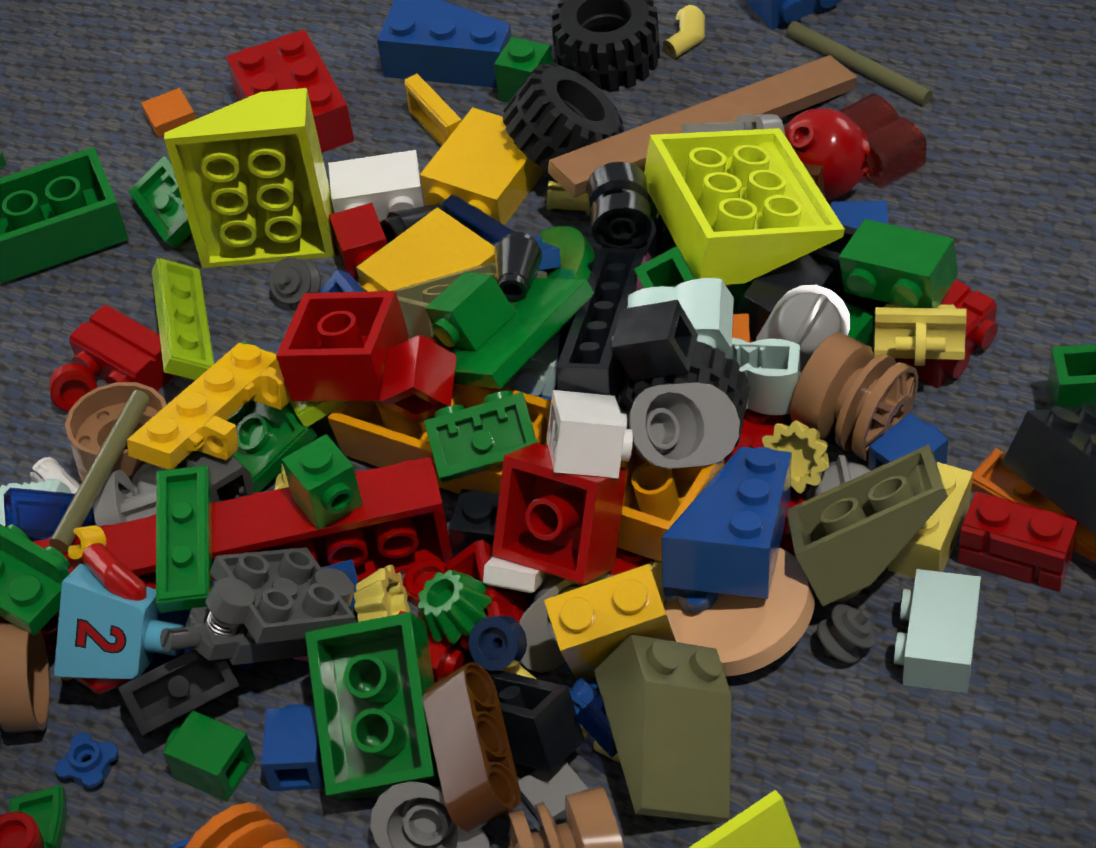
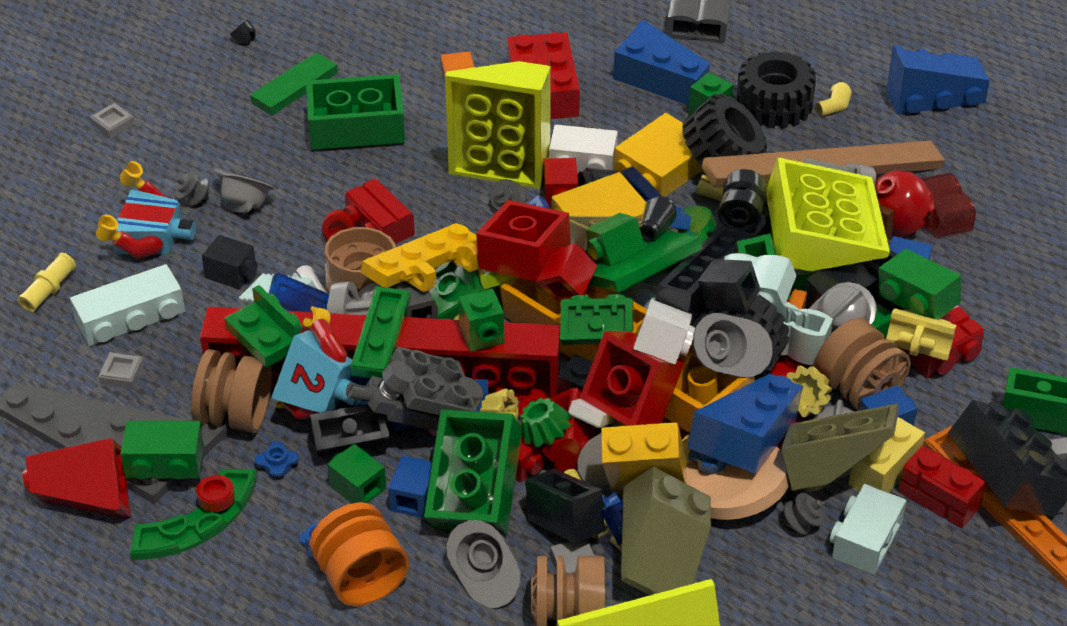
camera: 10 degrees right, 5 degrees down
(99, 471) = (340, 277): olive bar -> none
(162, 203) = (434, 124): green bracket -> none
(182, 319) = (423, 199): lime tile -> none
(430, 109) = (636, 106): yellow tile -> none
(471, 747) = (526, 509): reddish brown beam -> none
(497, 642) = (565, 452): dark blue tile -> none
(860, 63) = (951, 152): olive bar -> none

